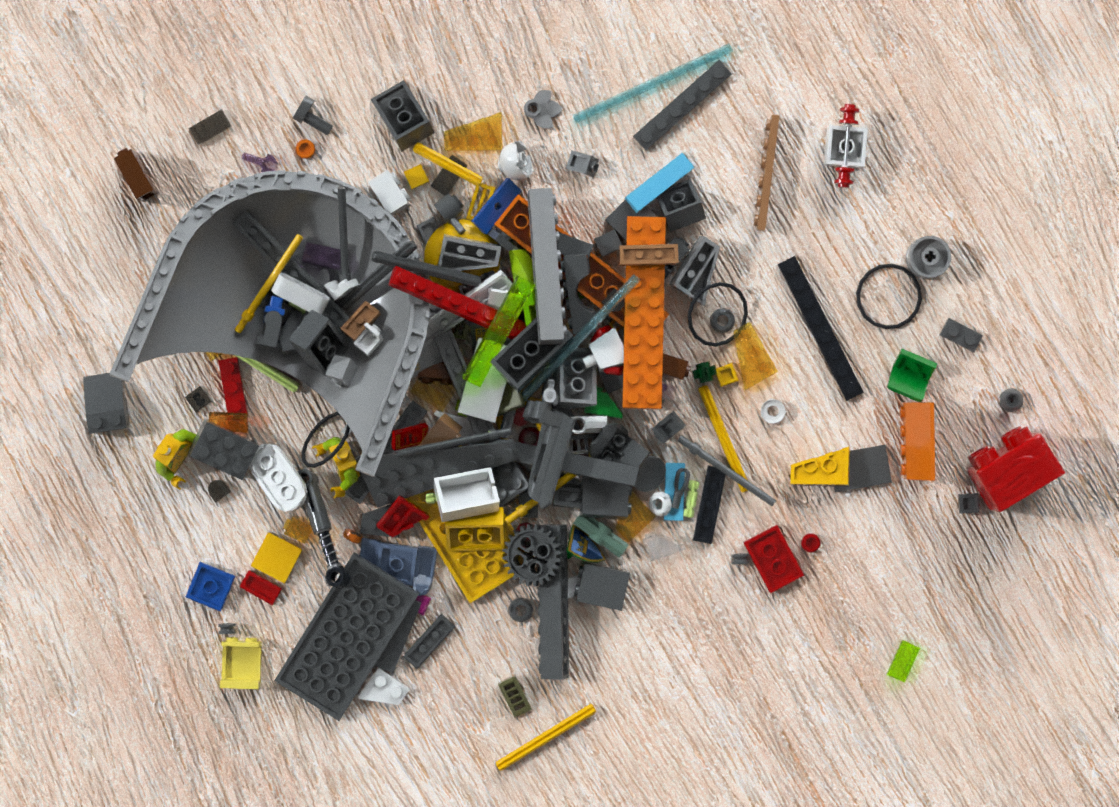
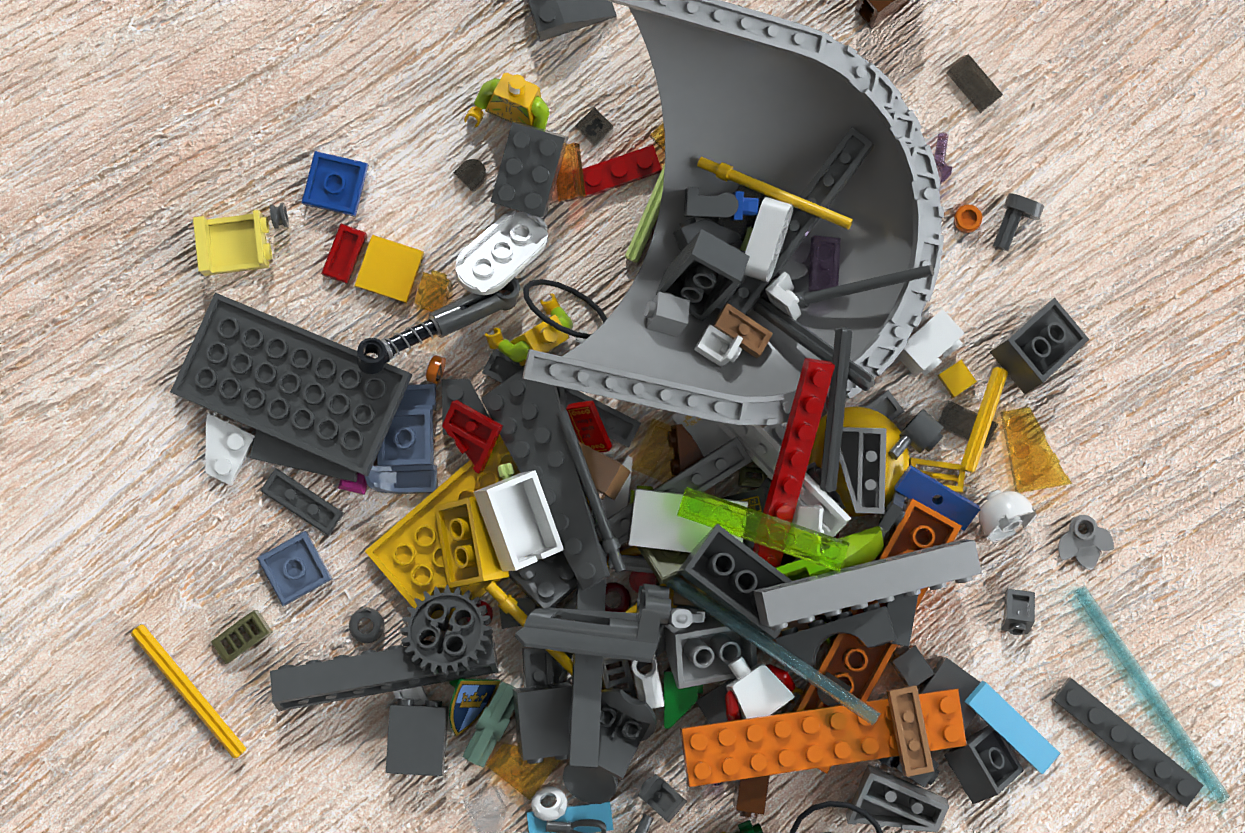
camera: 80 degrees right, 5 degrees down
(474, 653) = (294, 568): none -> sand blue tile

